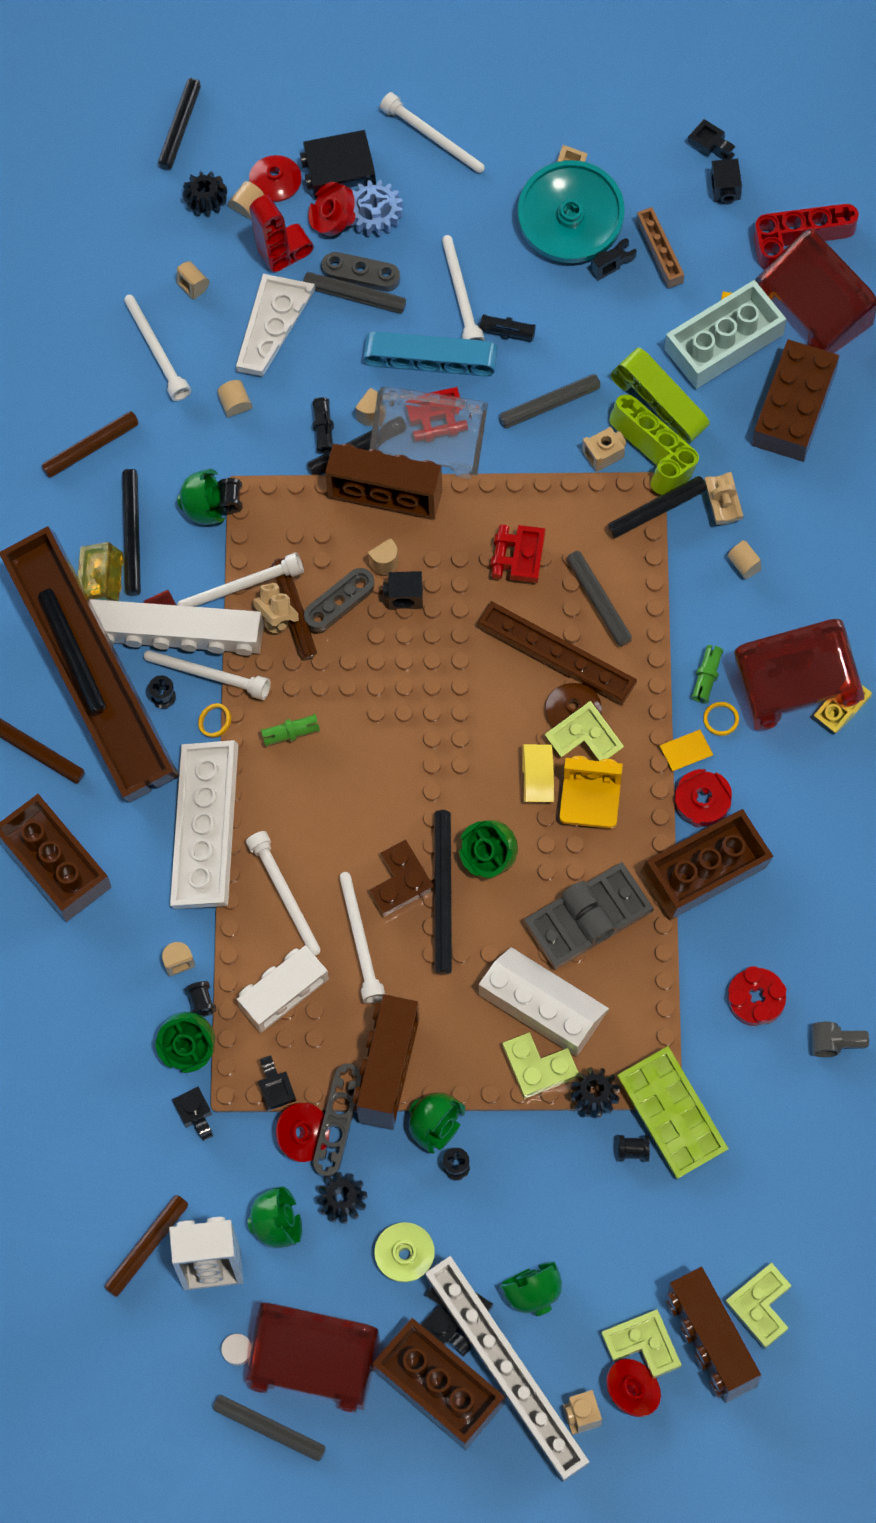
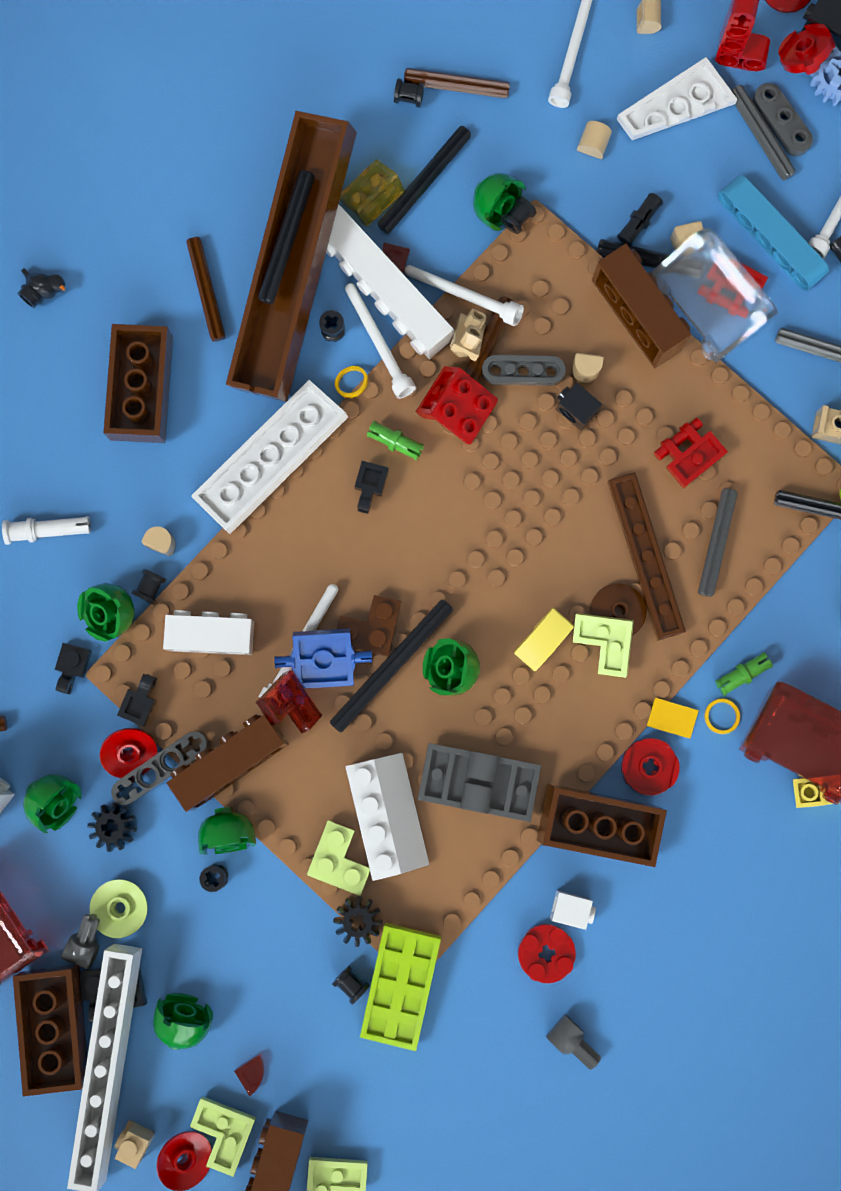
camera: 40 degrees right, 15 degrees up
(60, 480) = (409, 93): none -> black bush
(68, 1037) = (33, 529): none -> white pin
(260, 845) = (293, 511): white piece -> none
(301, 775) = (371, 482): none -> black plate
(311, 663) = (457, 403): none -> red bracket
(387, 927) = (323, 658): none -> plate
(392, 978) = (289, 698): none -> clear red plate
(402, 1304) = (82, 946): none -> dark grey axle
(591, 792) = (567, 691): yellow bracket -> none
(623, 1284) = (251, 1074): none -> clear red tile
(744, 946) = (572, 910): none -> white brick

